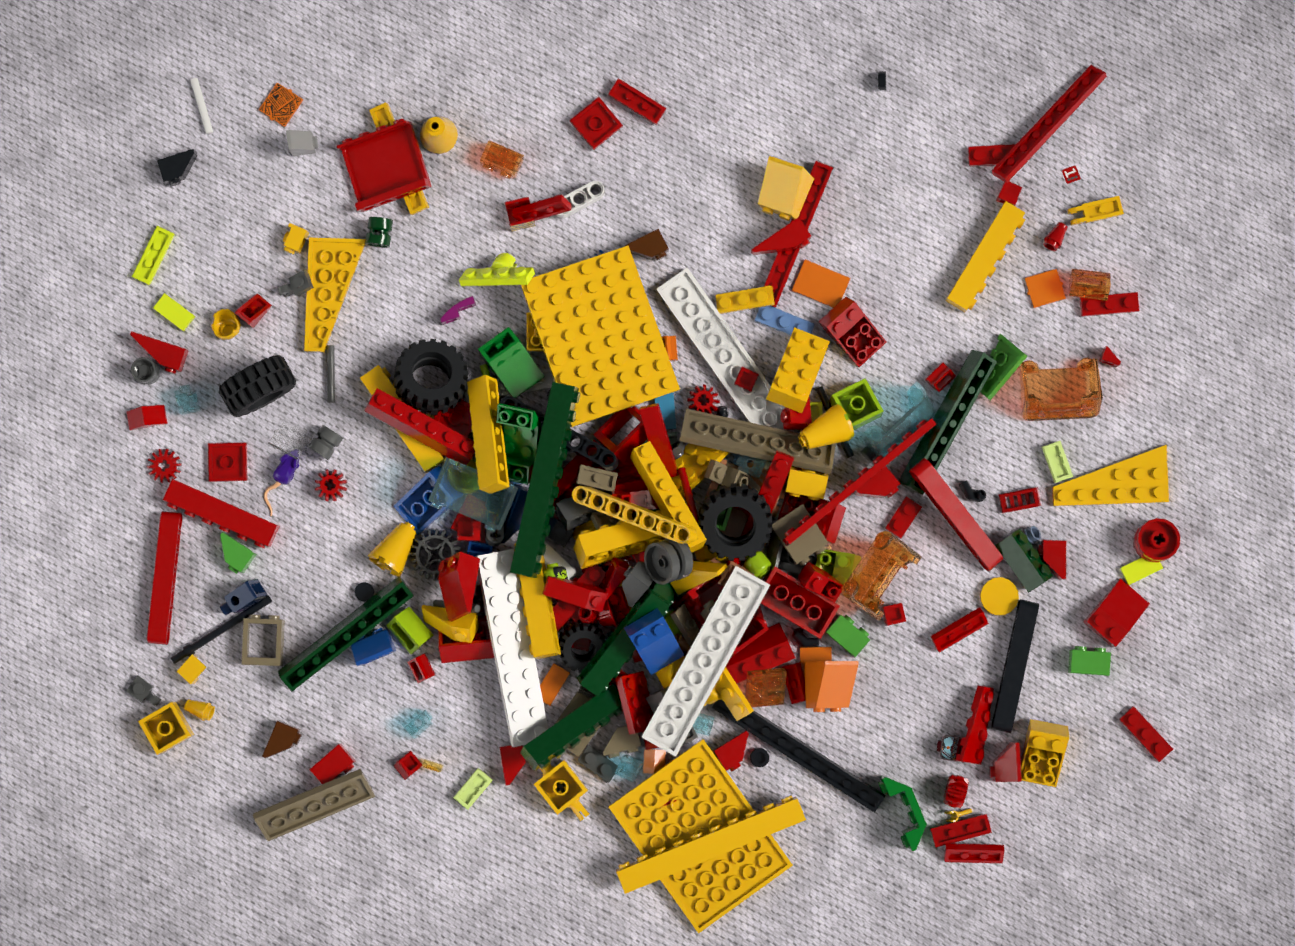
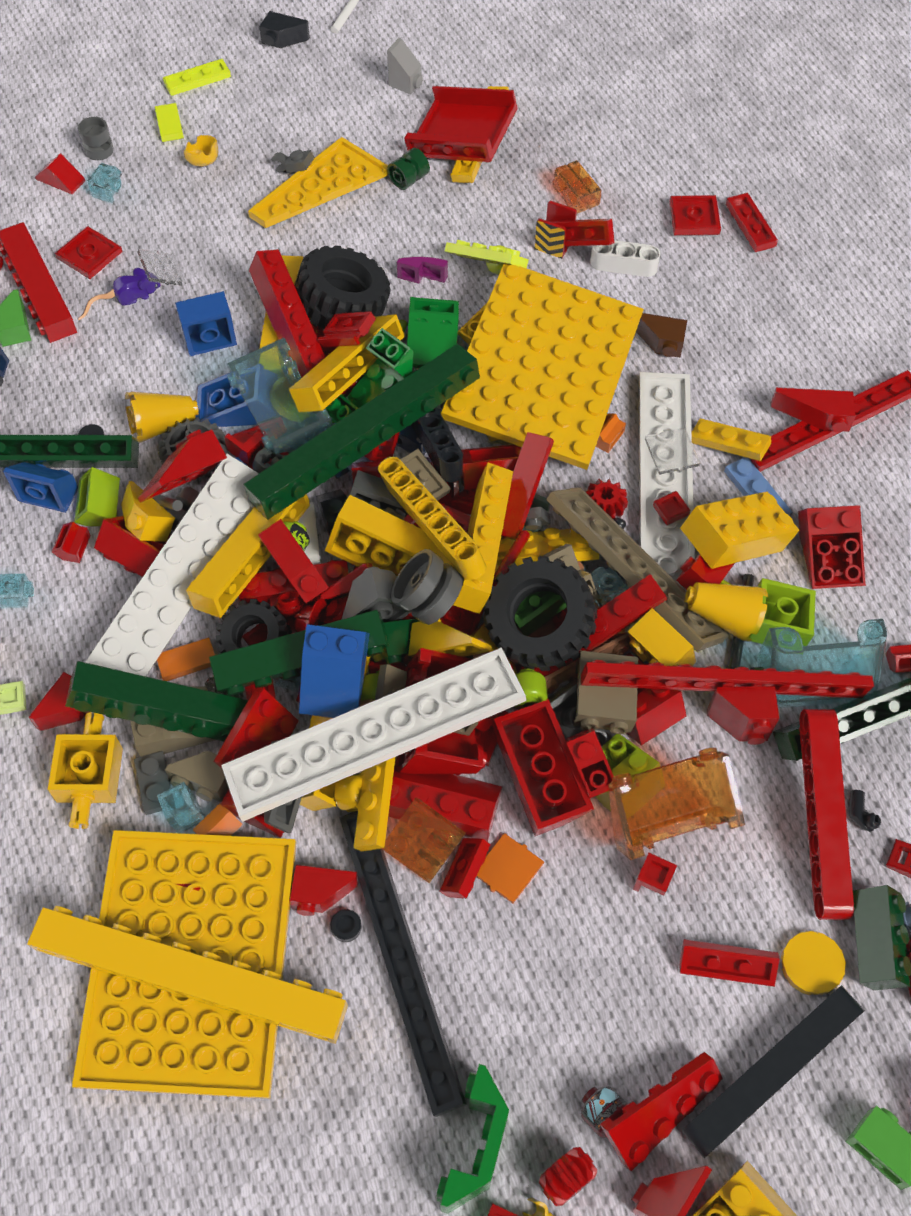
camera: 35 degrees right, 25 degrees down
(166, 354) = (127, 139): red slope -> none
(170, 460) = (41, 214): red gear -> none
(253, 310) = (234, 157): red slope -> none
(257, 386) = (183, 172): black tyre -> none
(281, 104) = (420, 45): orange piece -> none
(295, 239) = (327, 131): yellow brick -> none
(325, 442) = (191, 286): dark grey wheel -> none
(330, 374) = (253, 247): dark grey bar -> none
(336, 480) = (158, 326): red gear -> none
(365, 464) = (206, 323): none -> blue brick
(438, 135) = (535, 130): yellow cone -> none
(469, 413) = (346, 329): none -> red plate
(667, 409) = (558, 478): dark azure tile -> none
(703, 724) = (313, 831): clear light blue tile -> none
(784, 188) = (857, 362): yellow slope -> none
(803, 641) = (514, 826): black arm -> none
(820, 284) = (827, 482): orange piece -> none
(829, 684) = (507, 894): orange slope -> none
(847, 635) = (575, 860): bright green brick -> none
(903, 517) = (757, 777): red plate -> none

